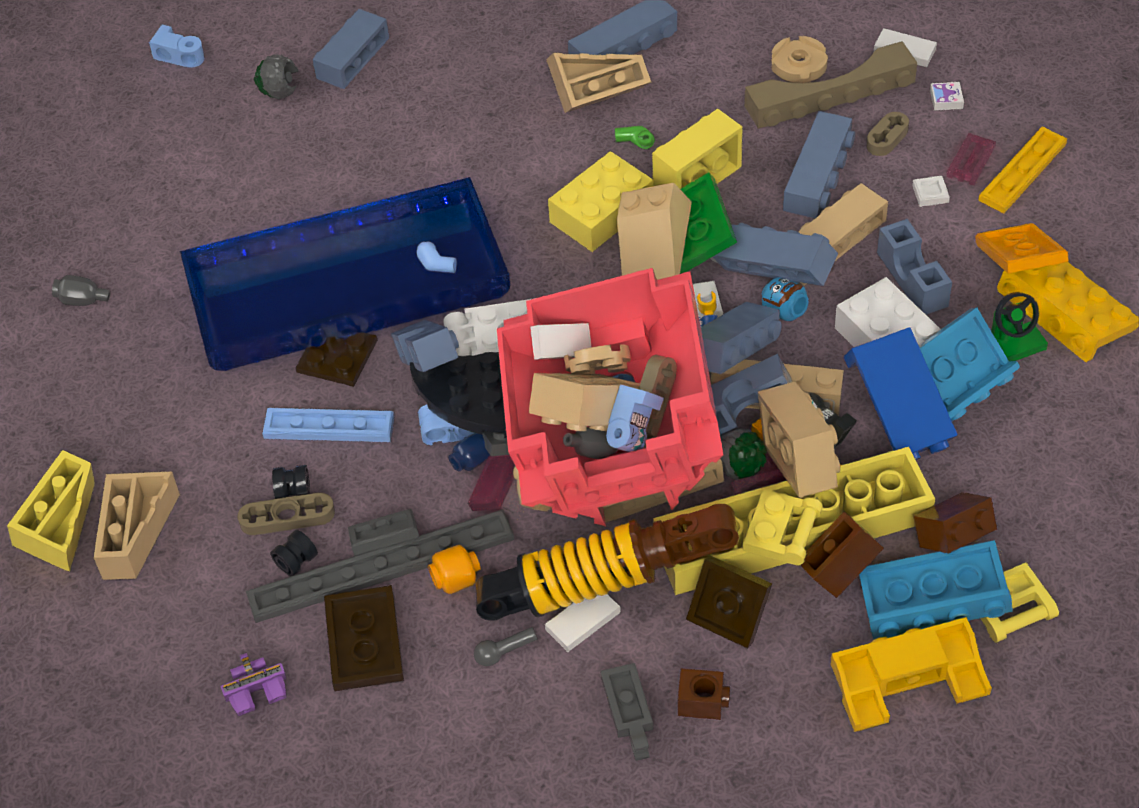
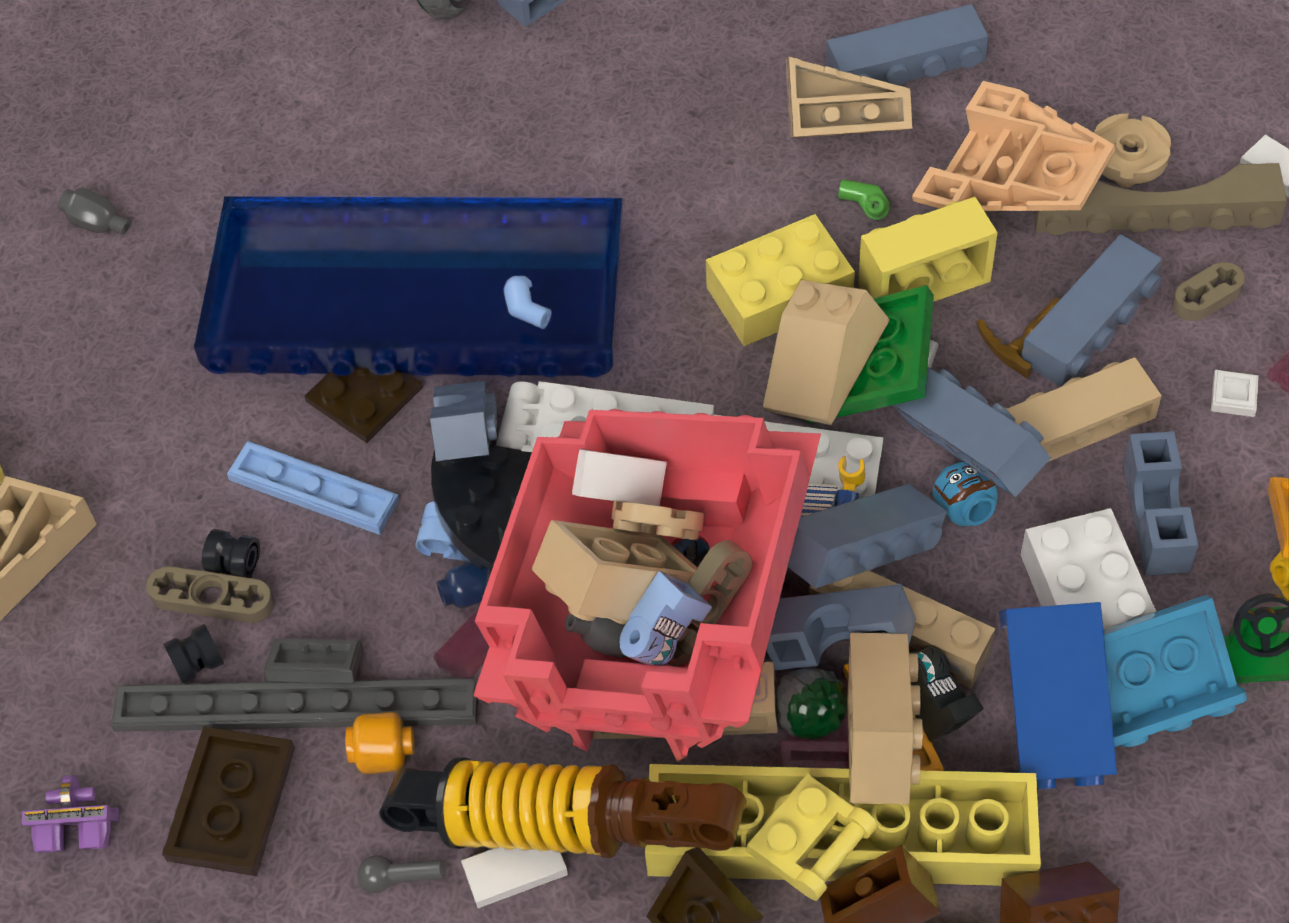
camera: 20 degrees right, 5 degrees up
(732, 78) = (1018, 158): none -> light nougat wedge
(776, 206) = (1012, 353): none -> pearl gold piece

